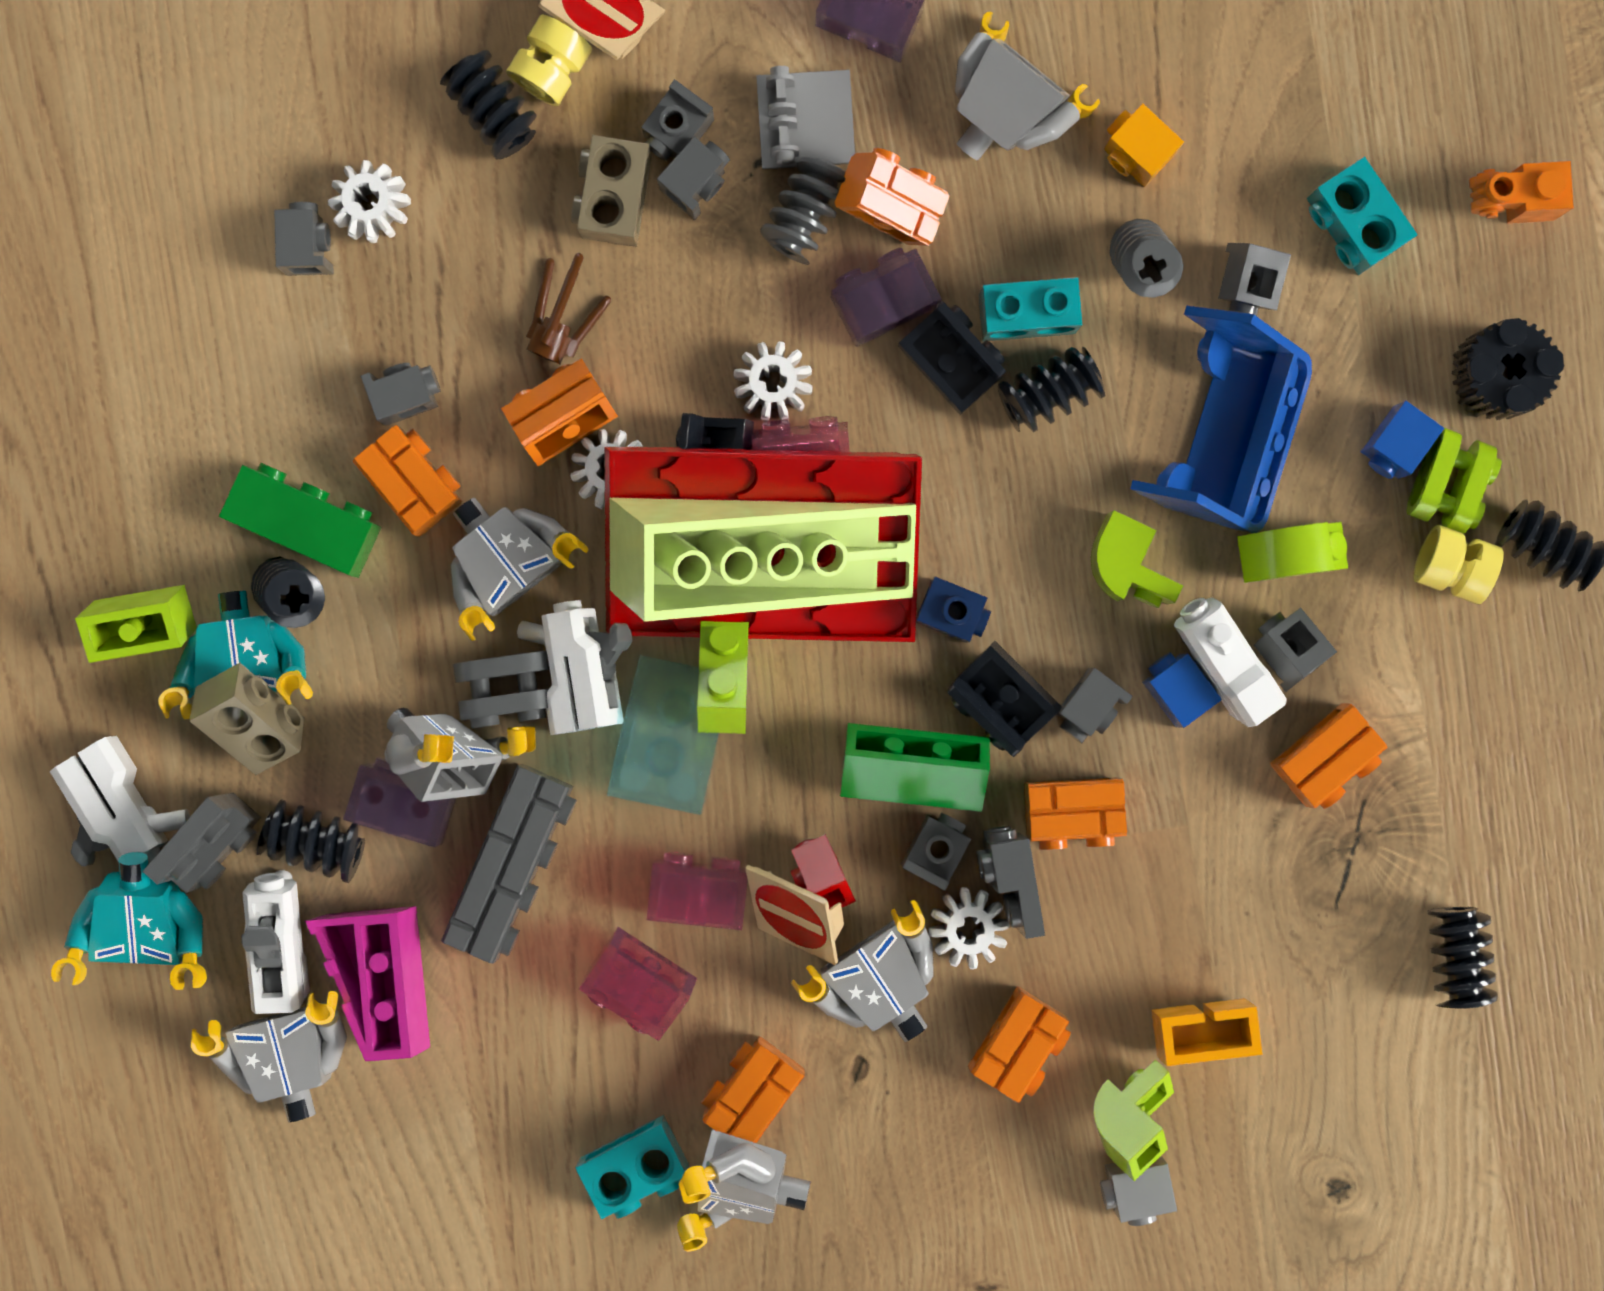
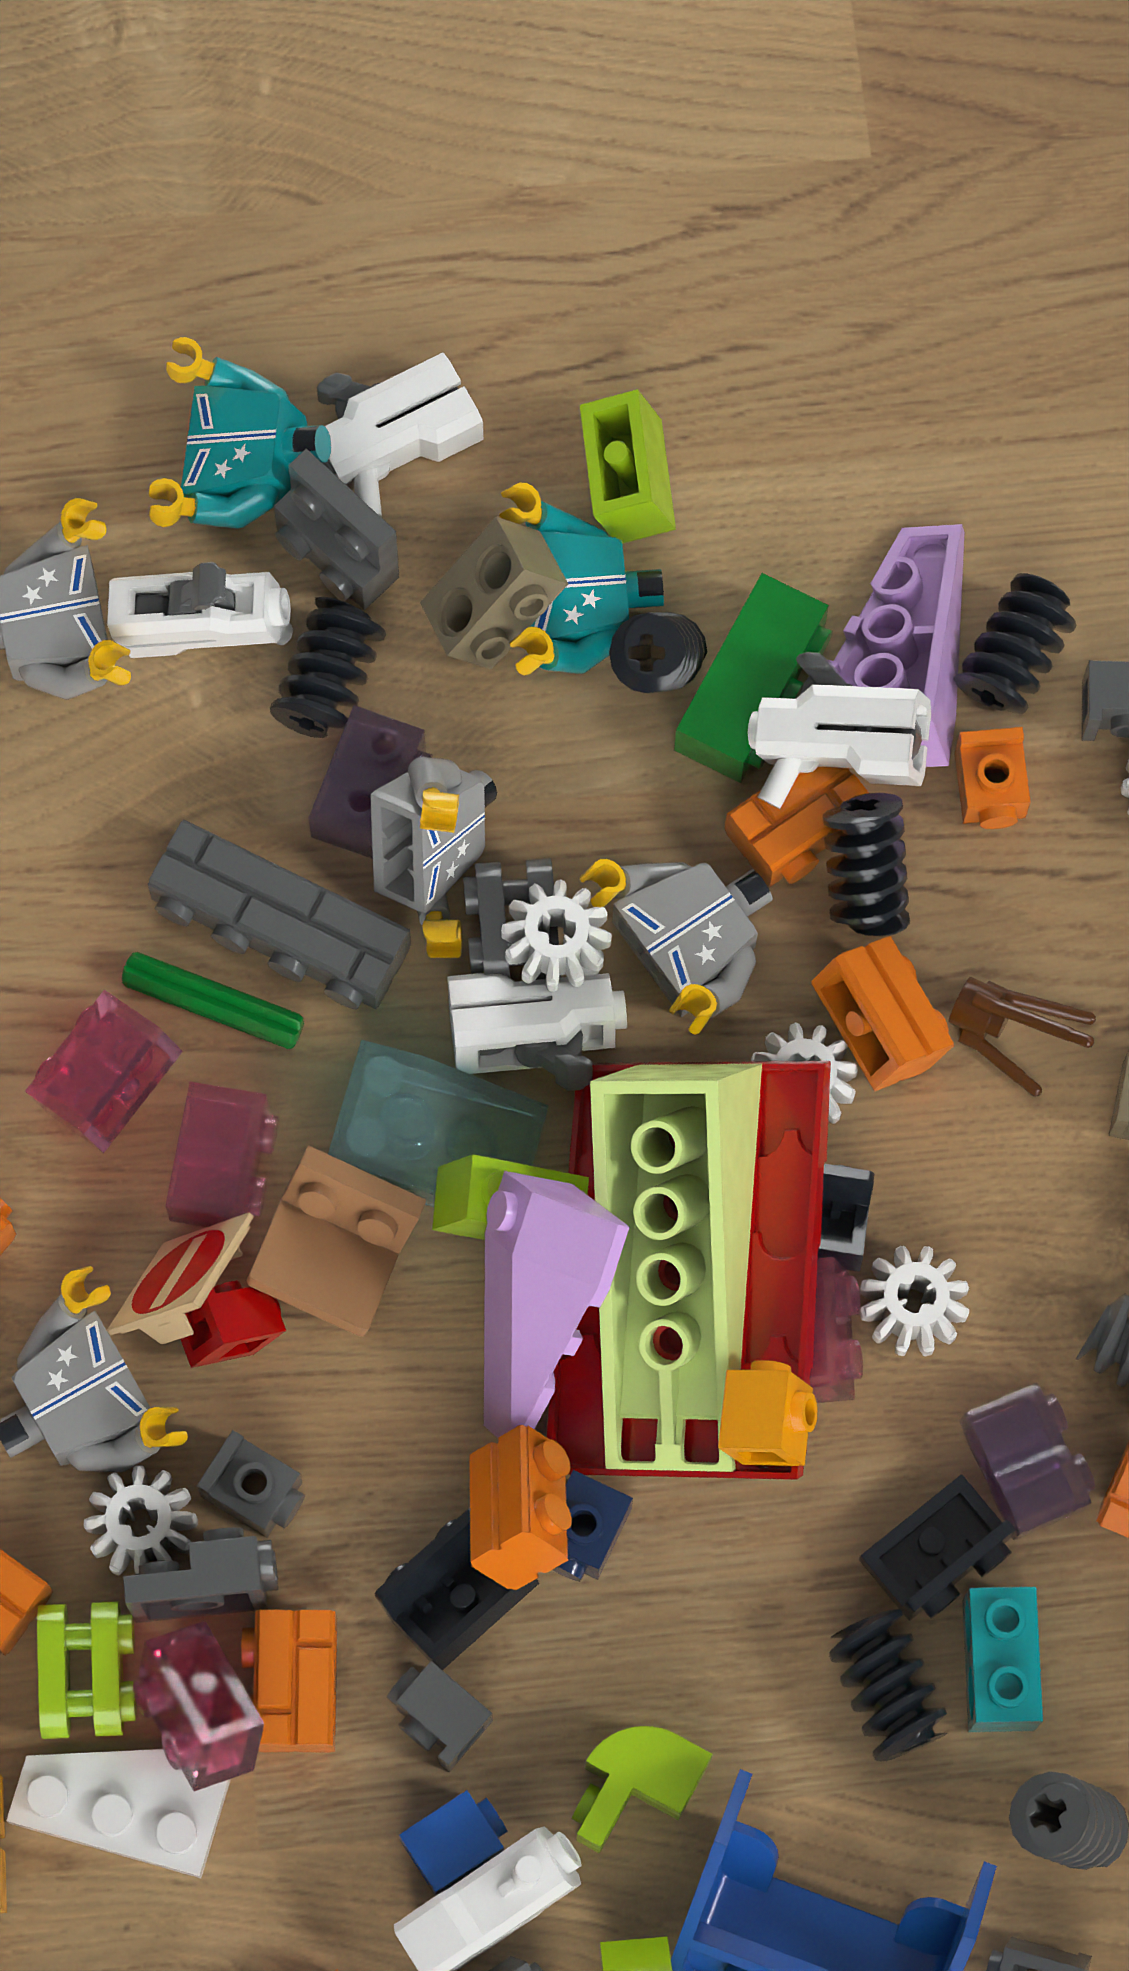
camera: 95 degrees right, 15 degrees down
(263, 323) = (1015, 644): none -> black piece
(289, 412) = (913, 628): none -> lavender wedge
(343, 449) = (840, 727): none -> white piece
(379, 978) = (140, 742): dark pink wedge -> none
(384, 349) = (986, 753): none -> orange brick
(401, 392) = (926, 816): dark grey brick -> none
(447, 426) = (869, 864): none -> black piece
(510, 642) = (580, 932): none -> white gear
(574, 907) = (212, 1000): none -> green axle
(759, 805) = (334, 1241): none -> medium nougat bracket
(783, 647) = (544, 1265): none -> lavender wedge
(880, 479) = (767, 1415): none -> light orange brick
(915, 767) = (369, 1458): green brick -> none
(949, 657) = (518, 1507): none -> orange brick
(1094, 939) = (111, 1698): none -> lime brick
(1103, 876) = (198, 1706): none -> clear pink brick
(1164, 916) = (120, 1805): none -> white wing

